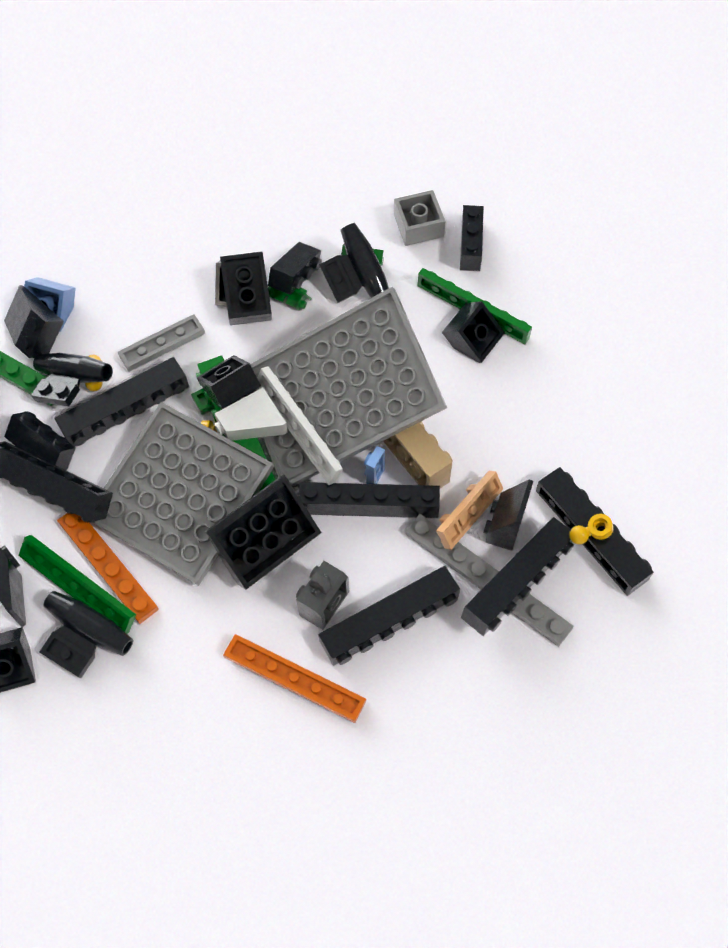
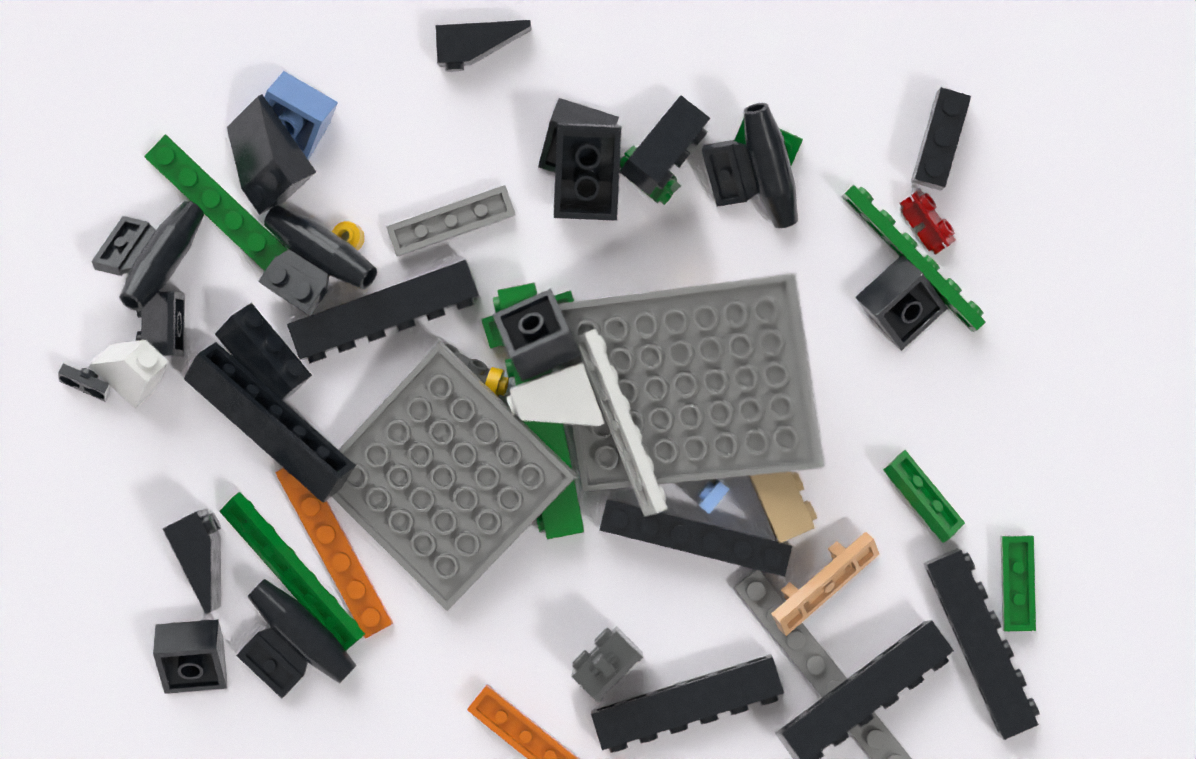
camera: 10 degrees right, 25 degrees up
(161, 241) = (470, 42): none -> black slope
(263, 532) = (547, 571): black slope -> none
(419, 217) = (870, 88): light grey brick -> none
(471, 279) = (936, 229): none -> red hinge
(508, 515) = (872, 608): black slope -> none
(523, 444) = (924, 496): none -> green plate
(580, 534) = (958, 656): yellow plate -> none
(606, 486) = (1018, 583): none -> green plate

